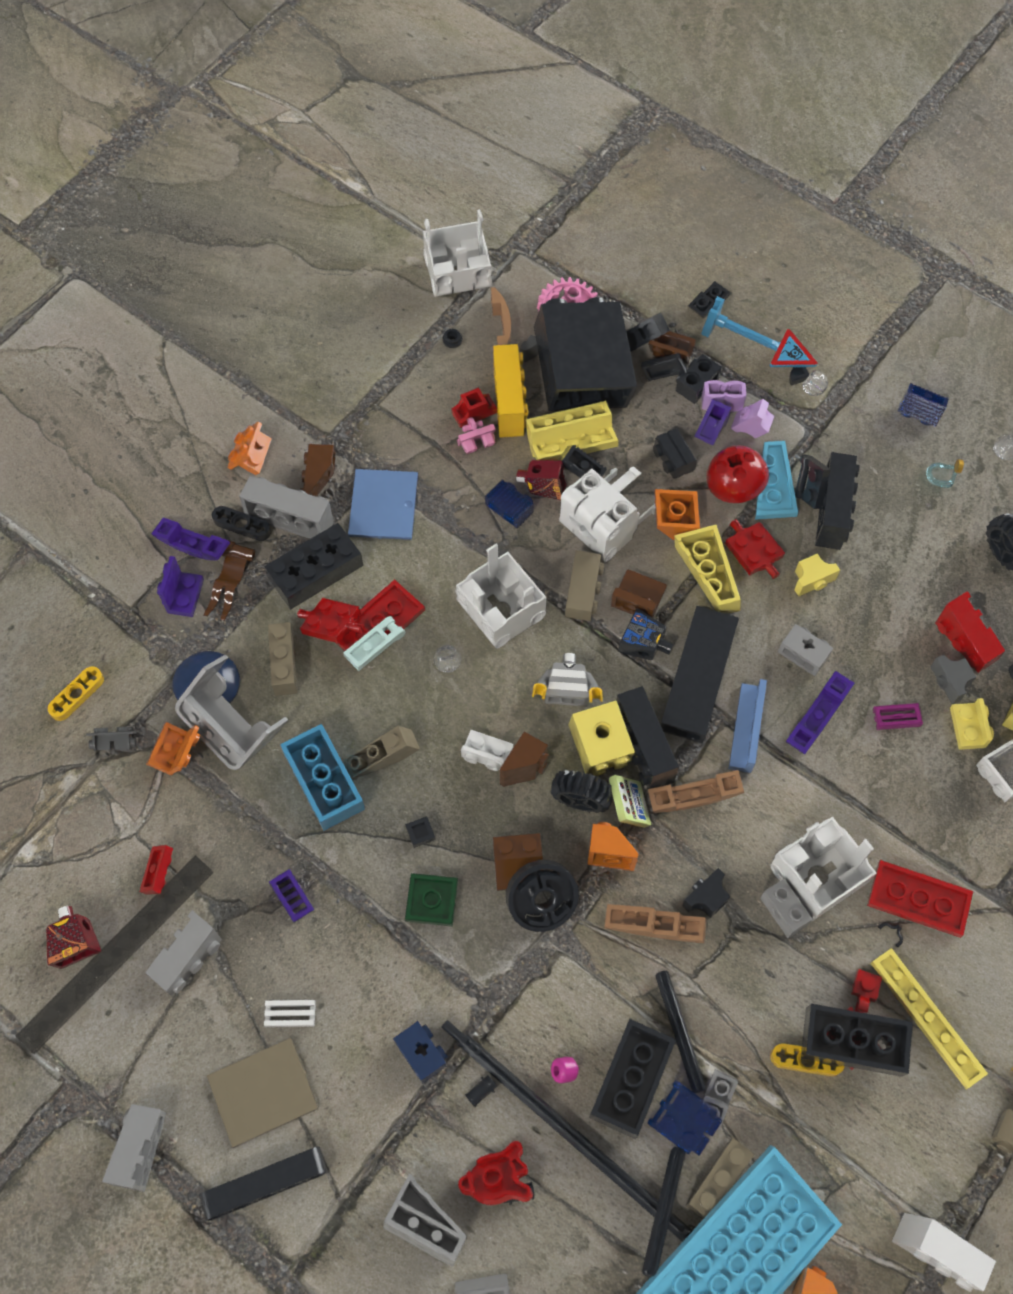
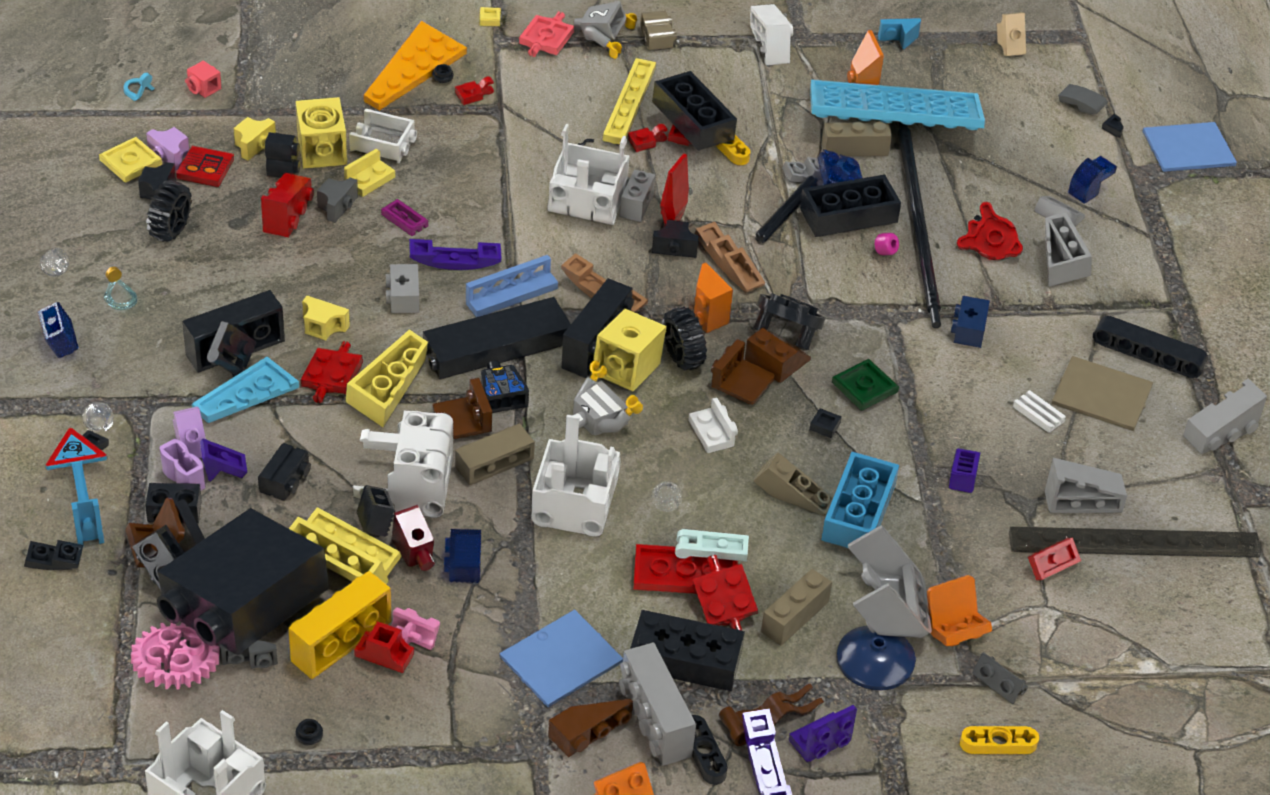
camera: 135 degrees left, 20 degrees down
(70, 939) = (1165, 564): dark red torso -> none
(481, 1090) = (952, 279): black pin -> none
(500, 307) = (278, 677): medium nougat slope -> none
(517, 811) = (738, 376): none -> reddish brown bracket
(524, 761) = (701, 382): reddish brown slope -> none
(629, 801) = (658, 310): tile -> none
(663, 1212) = (908, 149): black axle -> none
(676, 511) = (347, 421): orange slope -> none
(737, 474) = (264, 417): red piece -> none
(746, 913) = (675, 191): none -> red piece
(920, 898) = (541, 135): red plate -> none

